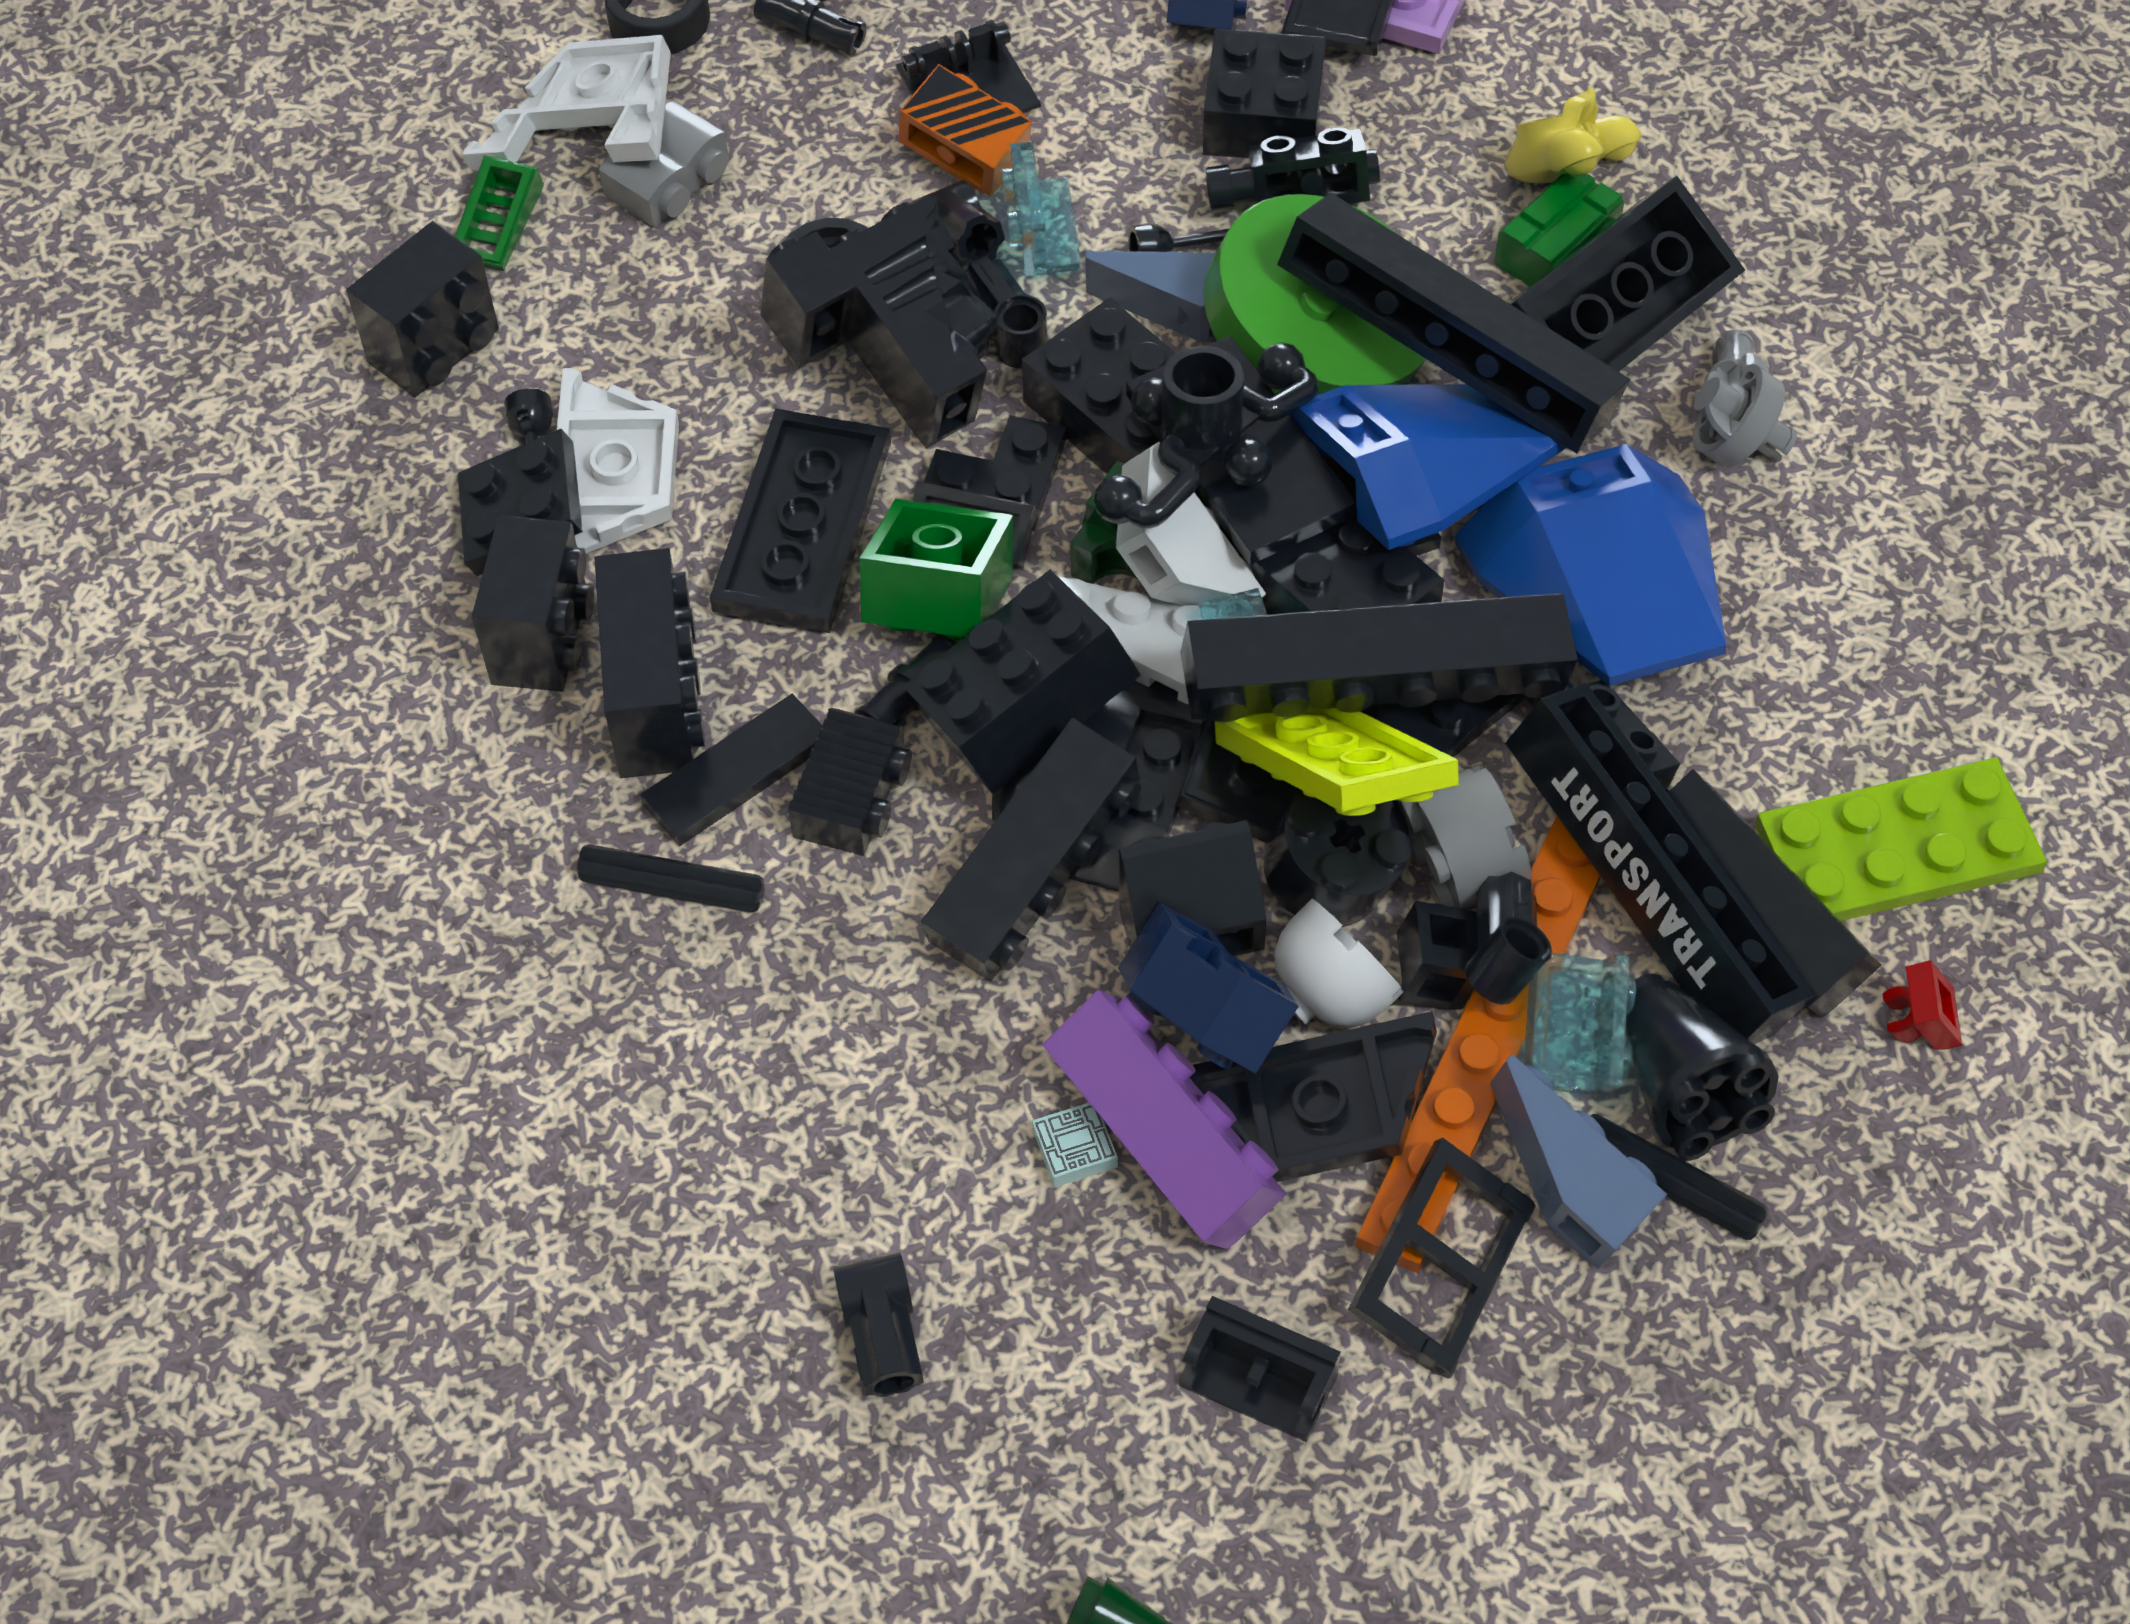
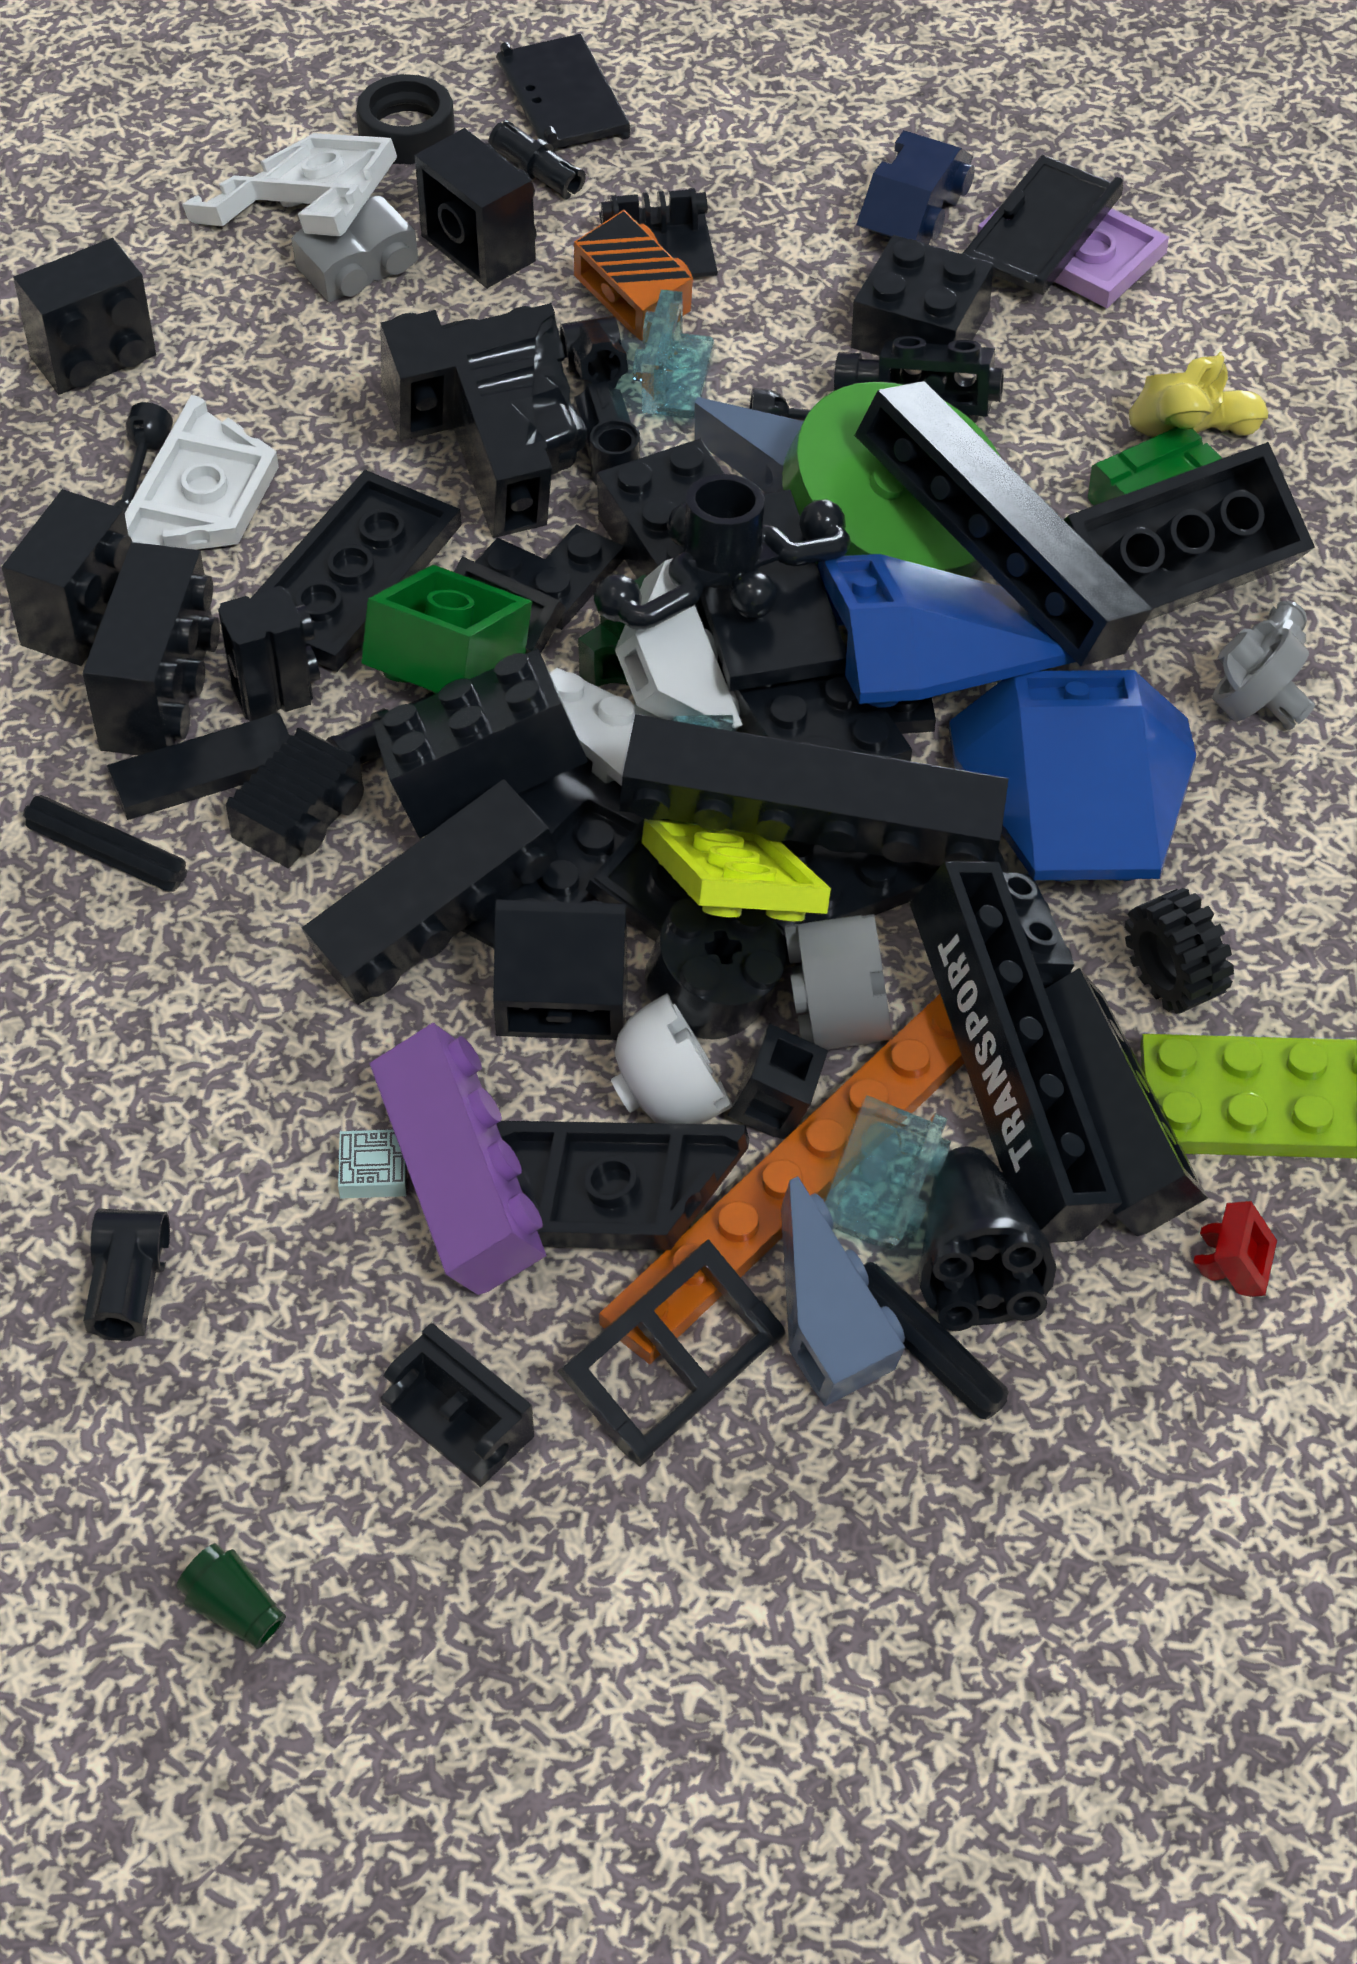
camera: 15 degrees right, 5 degrees down
(504, 175) = (200, 226): green slope -> none
(524, 482) = (120, 478): black plate -> none
(766, 636) = (268, 652): none -> black brick
(780, 93) = (476, 207): none -> black brick
(1205, 991) = (535, 1051): dark blue brick -> none
(1508, 939) = (839, 1077): black piece -> none
(1769, 722) = (1179, 950): none -> black tyre

